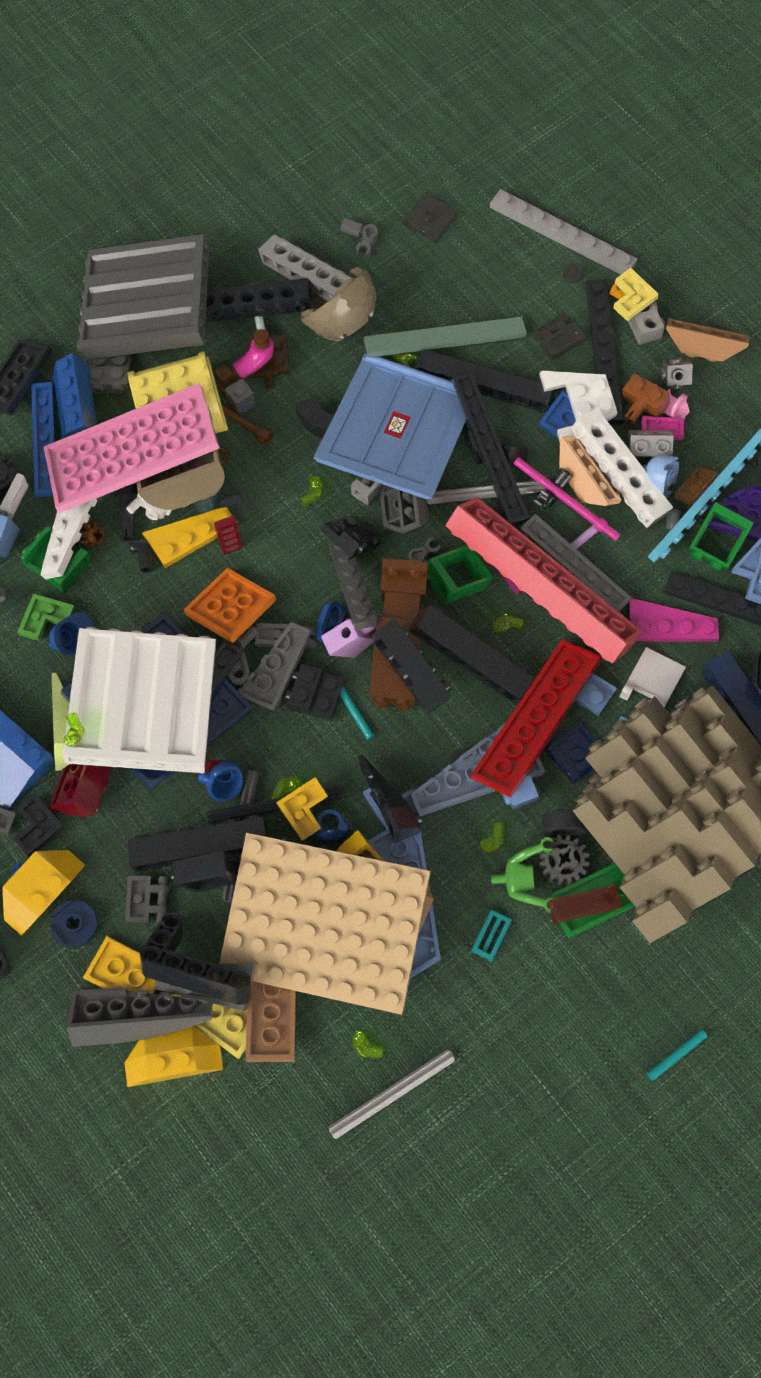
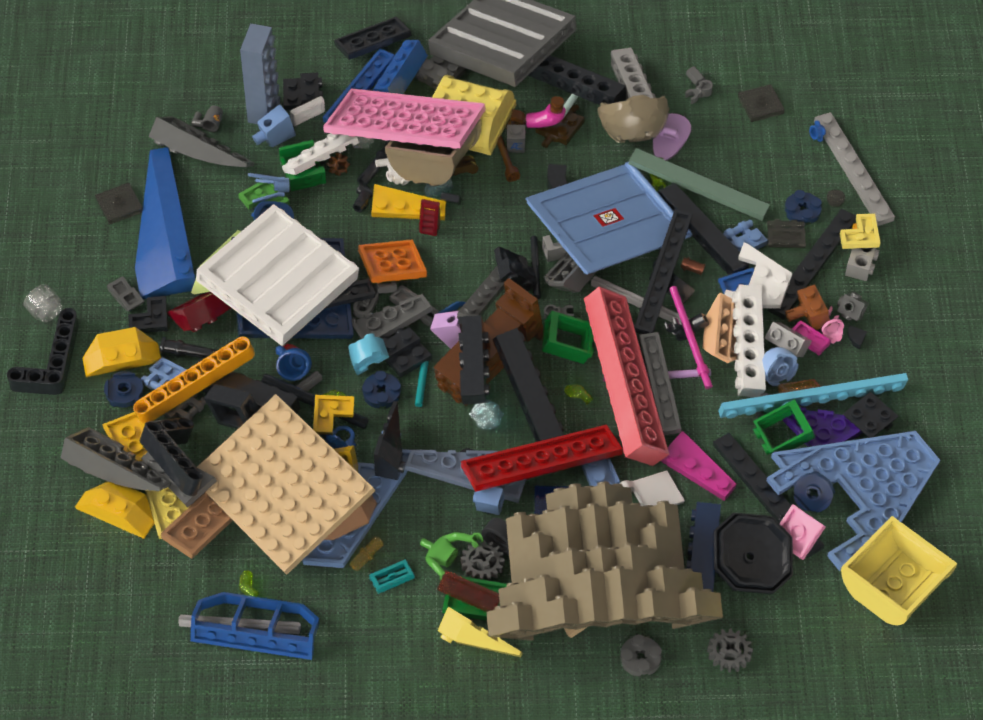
camera: 35 degrees right, 15 degrees down
(54, 595) = (281, 185): none -> medium blue plant
(76, 730) = (215, 260): clear neon green arm -> none
(95, 839) = (180, 348): none -> black pin
(105, 875) = (163, 370): none -> medium blue plate
(136, 878) = (184, 381): none -> light orange beam
(284, 719) = (367, 351): none -> medium azure cylinder
(315, 491) = (515, 230): clear neon green arm -> none
(316, 737) = (377, 381): none -> dark blue plate
(360, 516) = (535, 264): none -> black bar
(384, 312) = (672, 136): none -> lavender shield
(421, 1102) = (254, 639): none -> blue plate
(450, 709) = (487, 415): none -> clear light blue brick
(451, 930) = (366, 553): none -> clear yellow axle
(494, 841) = (446, 521): clear neon green arm -> none
(505, 215) = (817, 131): none -> blue plate
(505, 423) = (693, 266): none -> copper pin
(532, 362) = (753, 238): none -> medium blue plate
(554, 291) = (803, 199): none -> dark blue plate
(613, 946) = (465, 632): none -> light yellow wedge
(699, 399) = (856, 336): none -> black tile
(706, 341) = (892, 296): medium nougat wedge -> none

